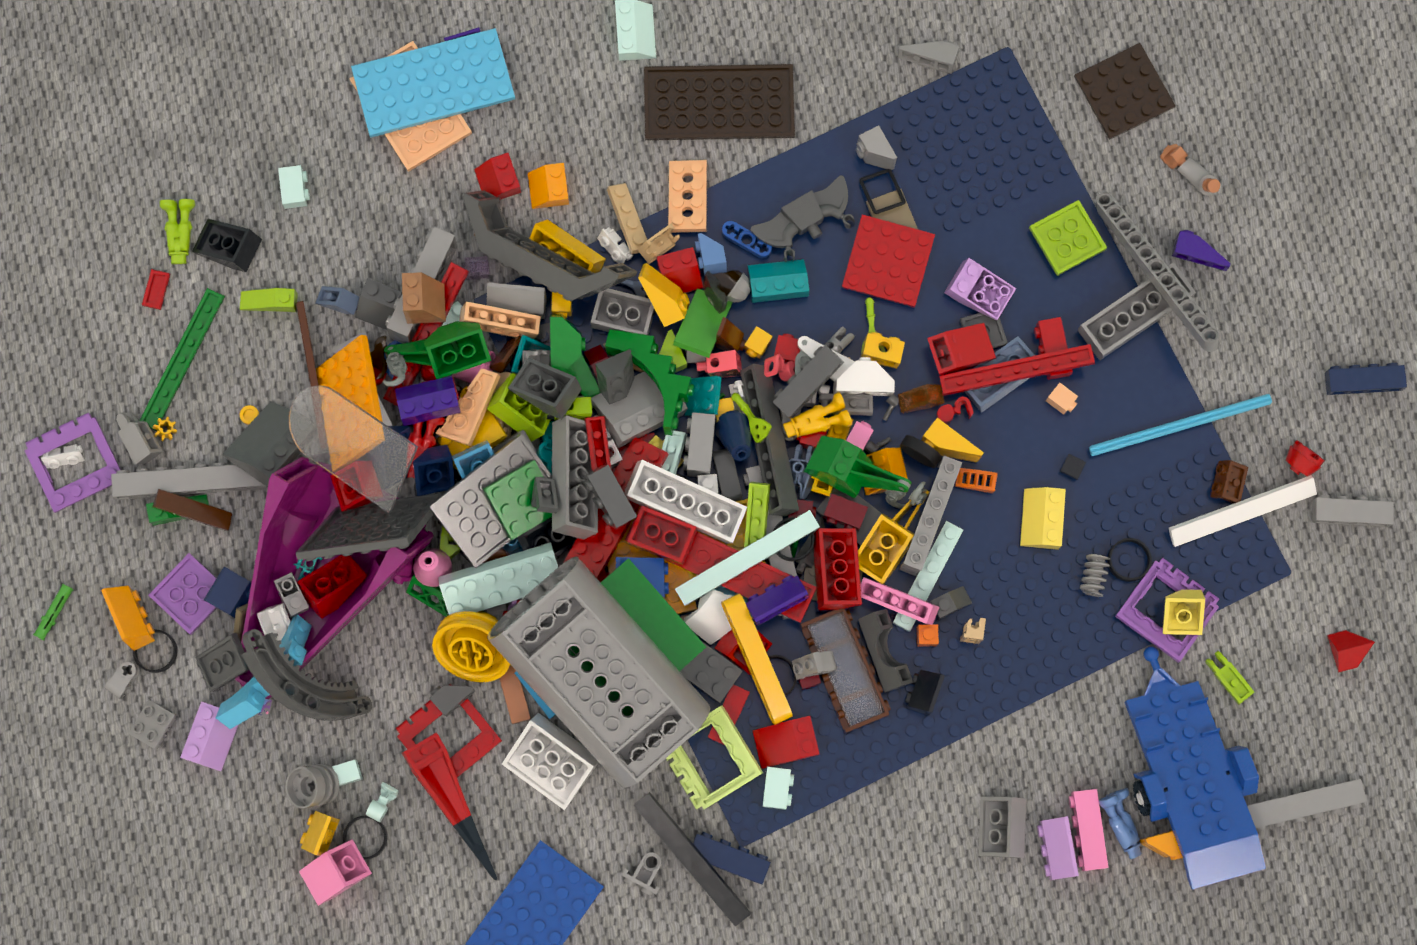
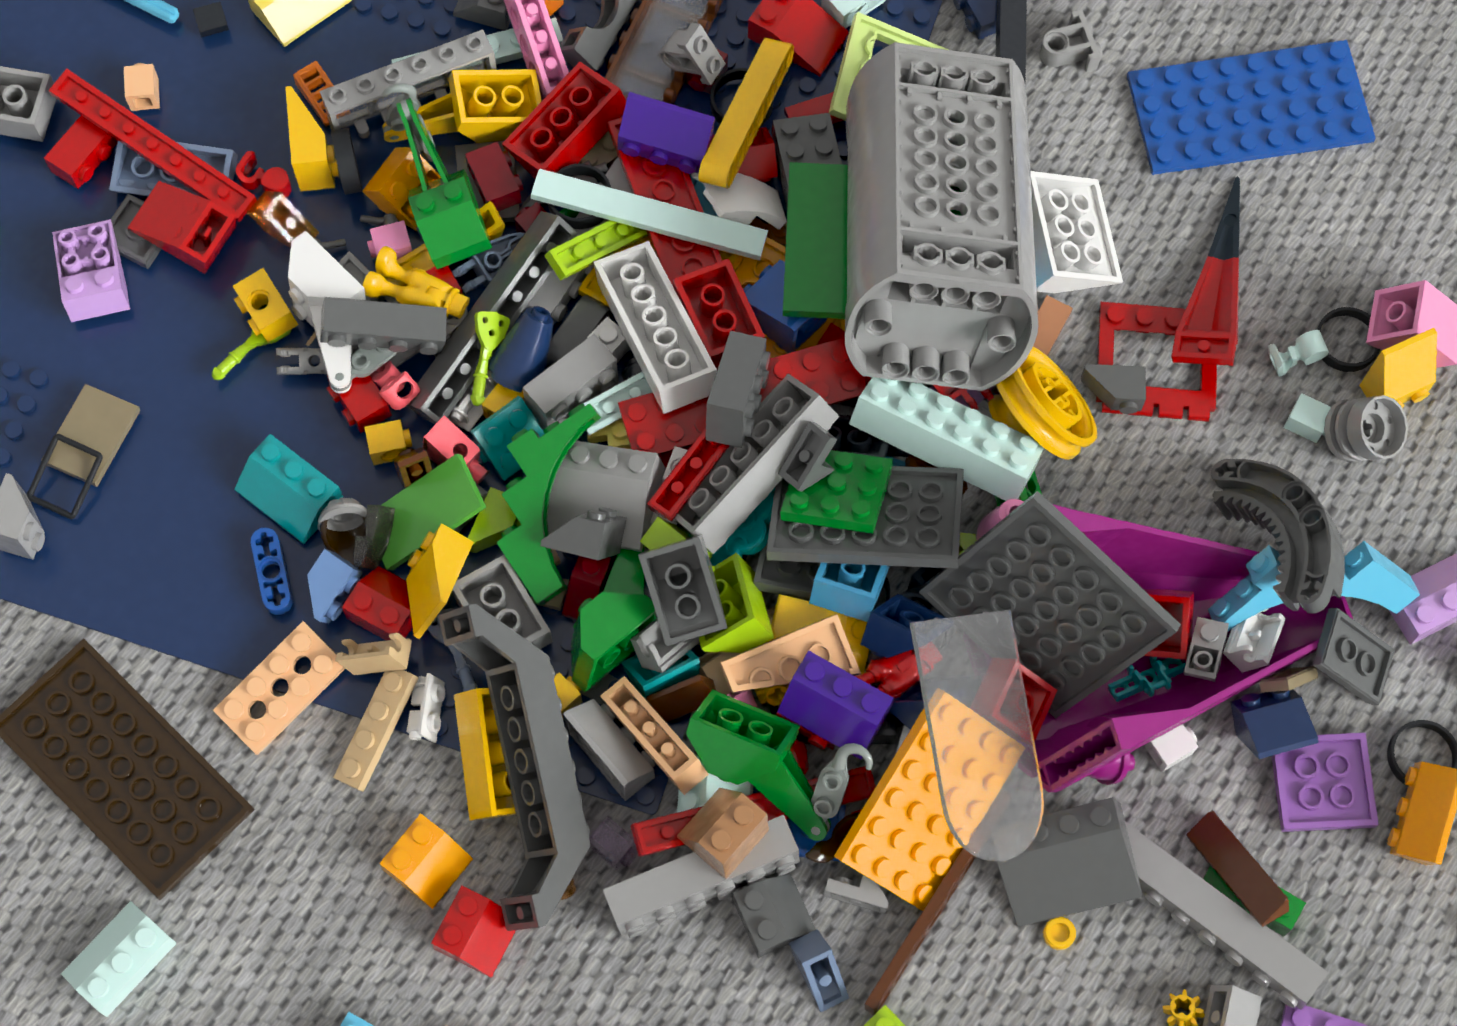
camera: 135 degrees left, 10 degrees down
(804, 216) = (179, 530): dark grey torso -> none
(888, 261) = (147, 395): red plate -> none

